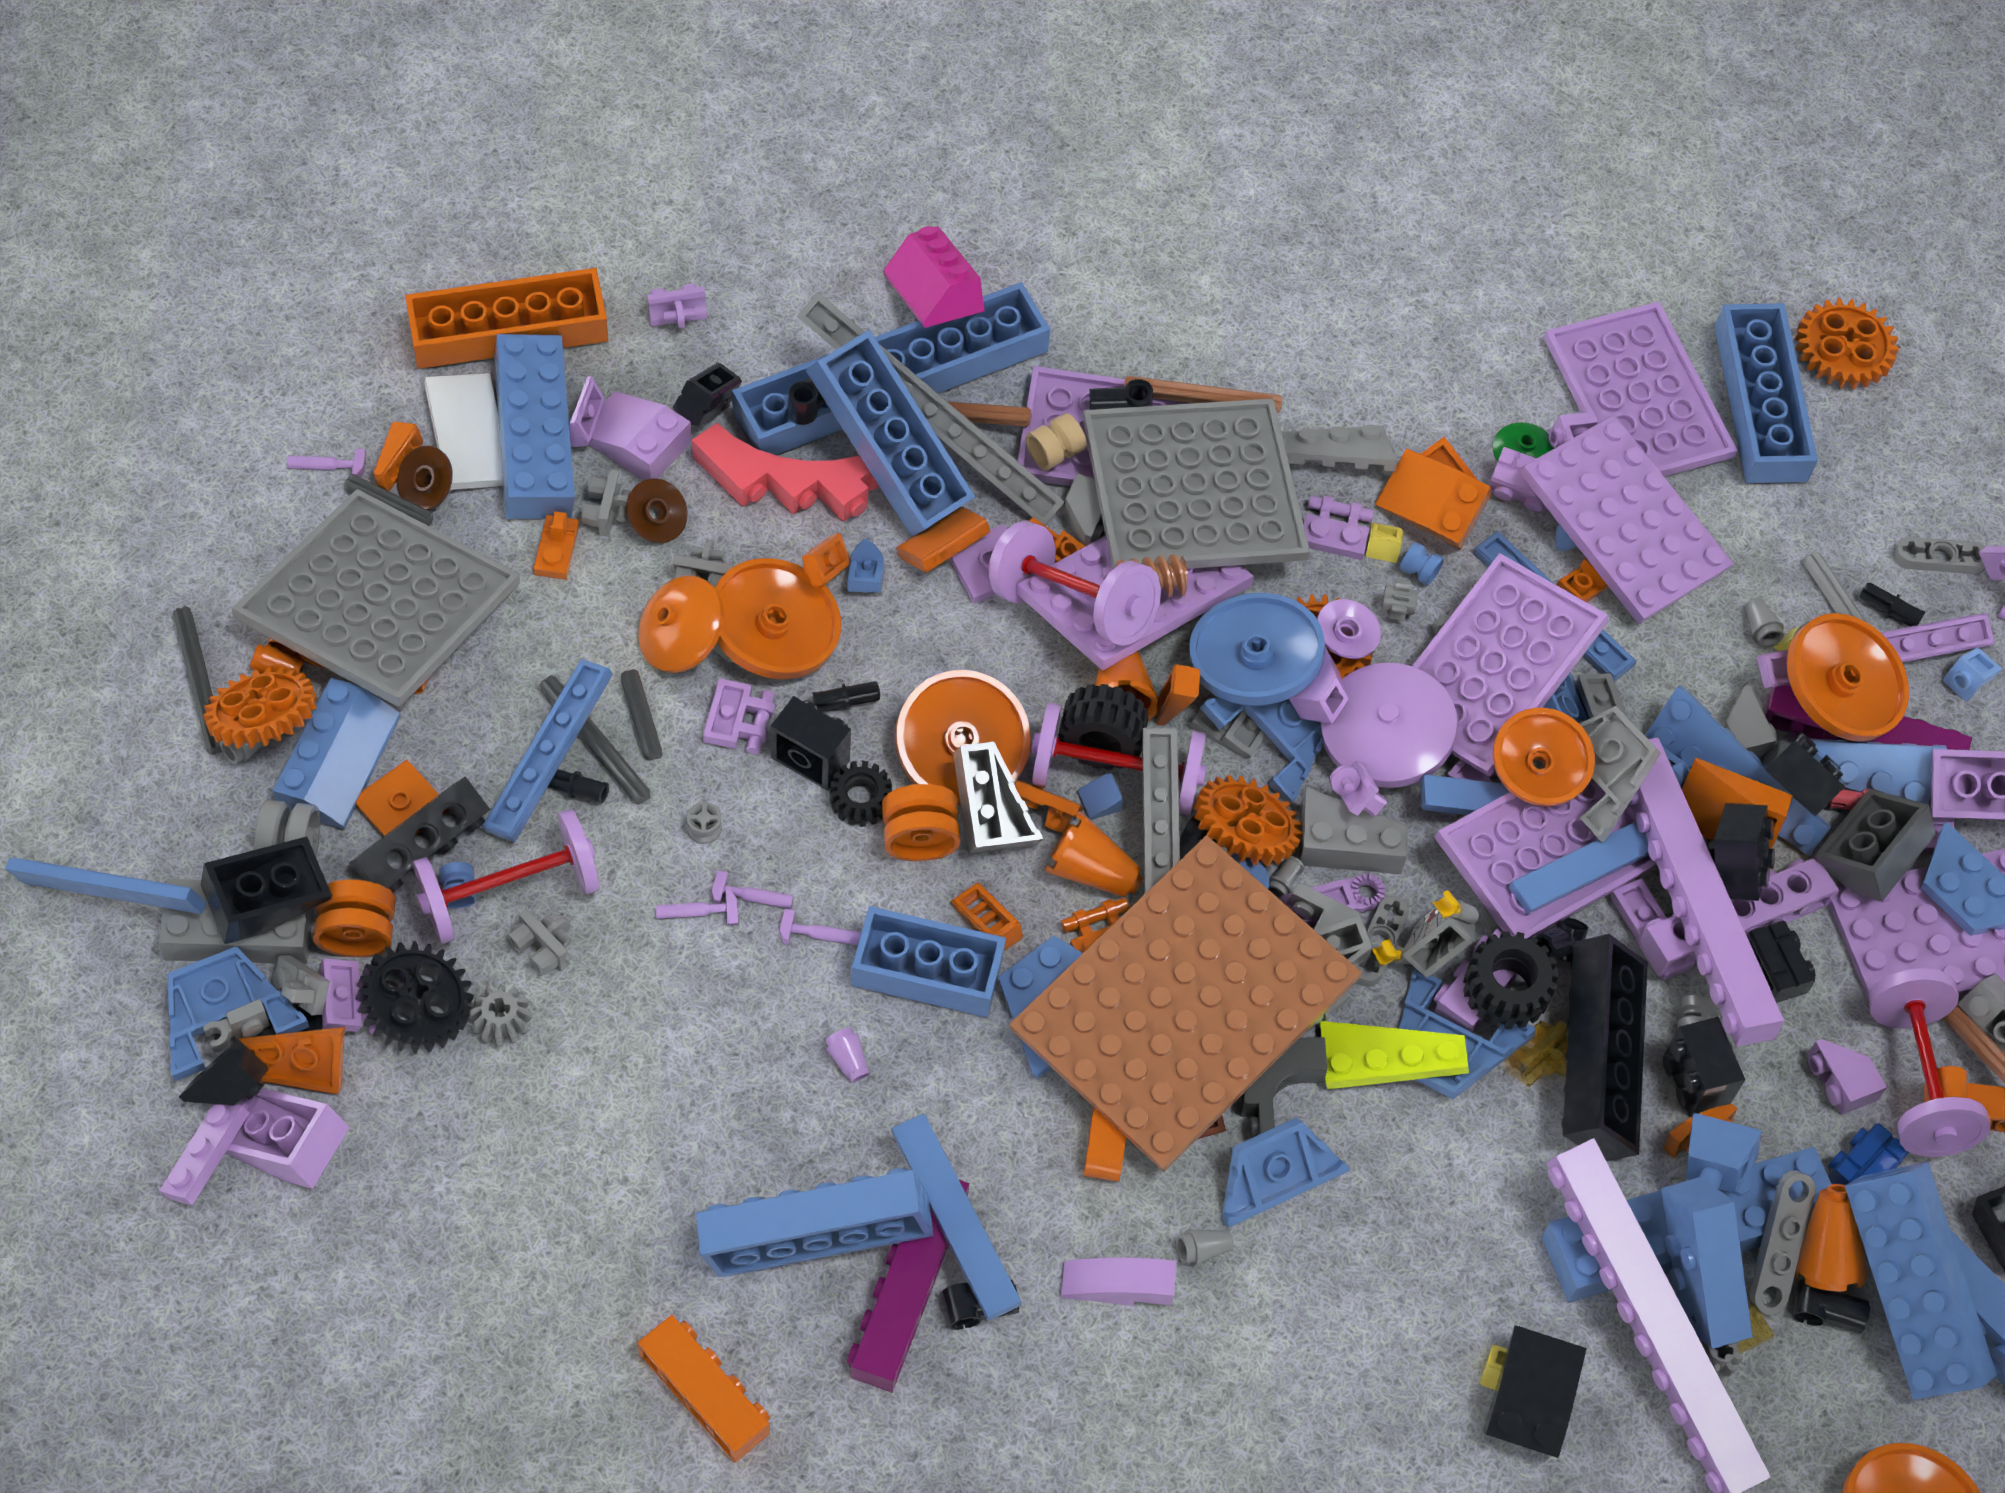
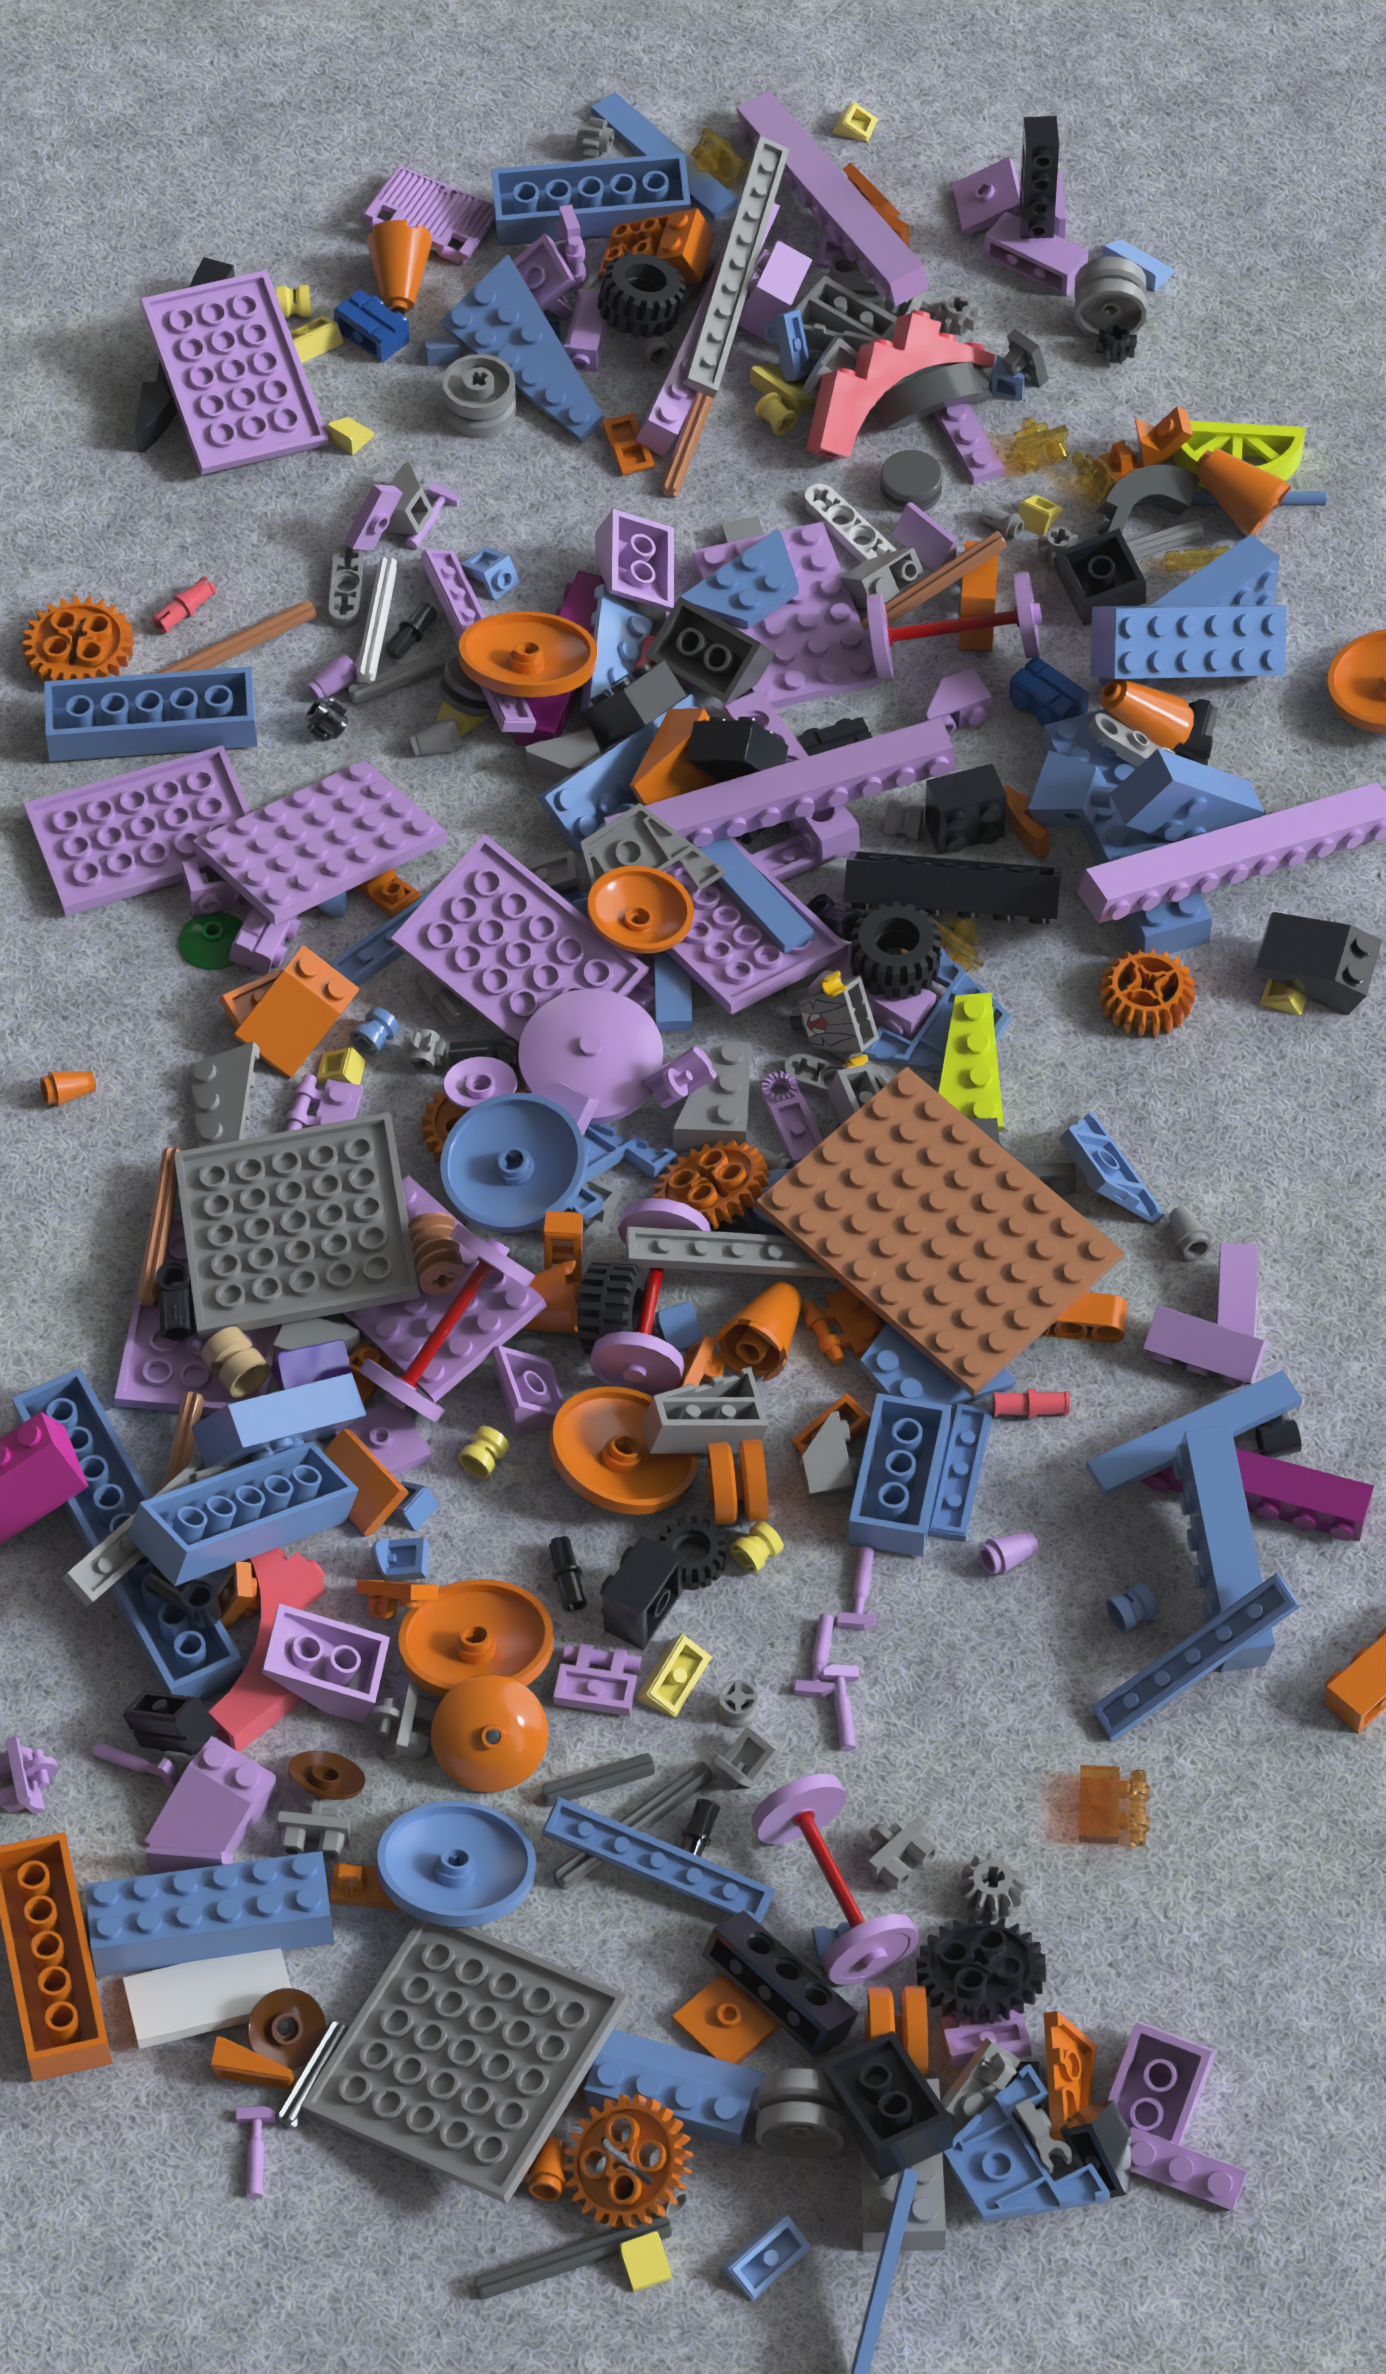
camera: 85 degrees left, 5 degrees down
(177, 821) = (766, 2256): none -> light blue slope
(184, 731) = (645, 2261): none -> light yellow slope
(559, 597) = (456, 1863): none -> medium blue dish
(575, 1113) = (1099, 1805): none -> clear orange plate
(644, 823) = (746, 1759): none -> light grey bracket
(696, 367) = (165, 1769): none -> lavender piece
(698, 1188) = (1195, 1656): none -> medium blue tile
(739, 778) = (674, 1676): none -> light yellow slope
(753, 500) = (326, 1662): none -> lavender slope
(780, 1156) = (1132, 1607): none -> medium blue wheel
(826, 441) = (238, 1595): none -> orange hinge
(862, 844) = (756, 1547): none -> light yellow wheel
(925, 586) = (415, 1506): none -> medium blue slope
(940, 1023) = (960, 1472): none -> medium blue tile
(947, 900) = (826, 1463): none -> light grey slope
(971, 635) = (483, 1452): none -> light yellow wheel
(979, 459) = (278, 1421): none -> medium blue brick
(1010, 1086) = (1031, 1403): none -> coral pin
(1035, 668) = (527, 1389): none -> lavender slope
(1048, 498) = (310, 1364): none -> slope
(1066, 1243) = (1205, 1346): none -> lavender brick
(1314, 904) = (823, 1116): light grey slope -> none
(1356, 334) = (66, 1086): none -> orange cone
(1395, 641) = (483, 1048): none -> black piece
(1484, 1203) = (1142, 1002): none -> orange gear
(1775, 531) = (327, 718): none -> black gear
(1828, 542) = (334, 677): none -> lavender cone
(1859, 463) = (245, 639): none -> nougat axle
(1898, 574) = (376, 620): none -> white axle
(1902, 425) = (184, 604): none -> coral pin

